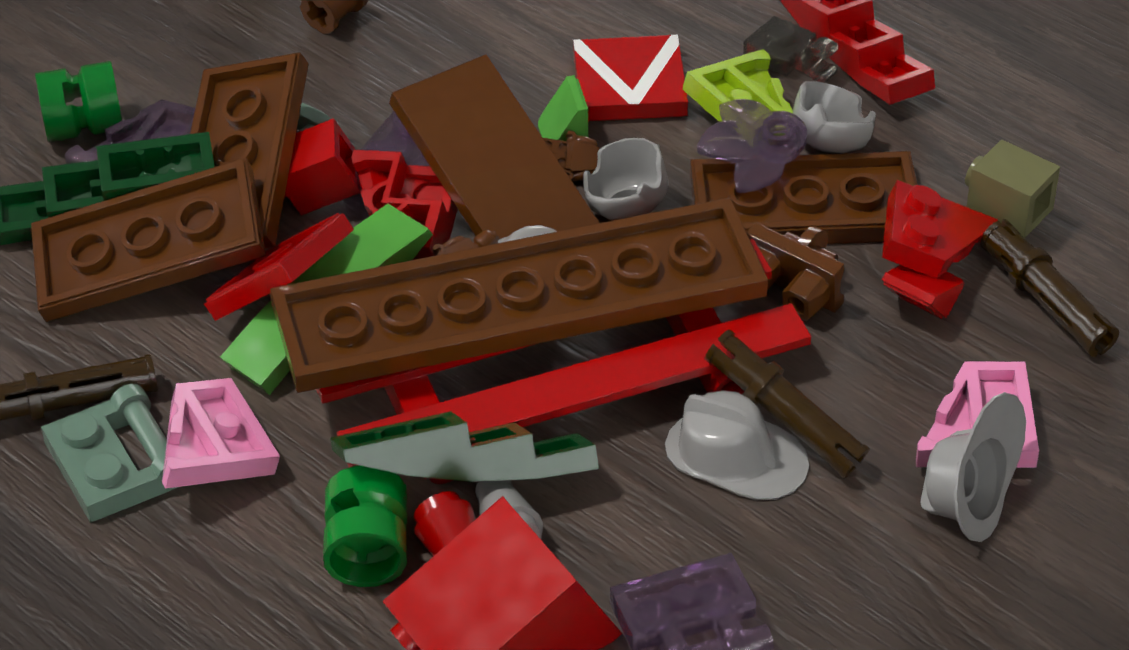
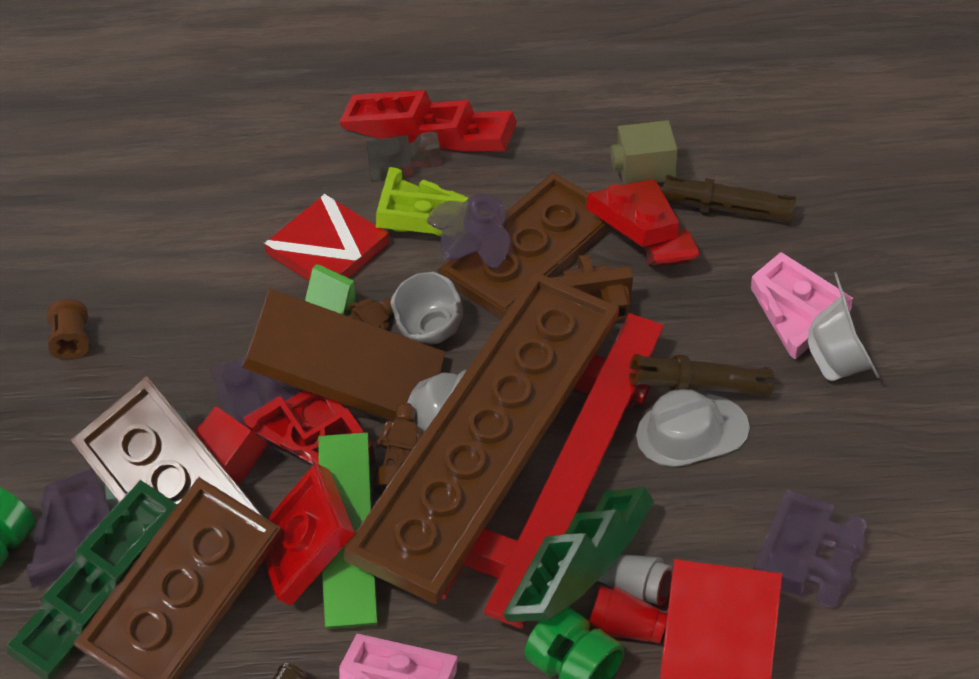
camera: 45 degrees left, 5 degrees up
(833, 117) = (485, 177): light grey hair -> none

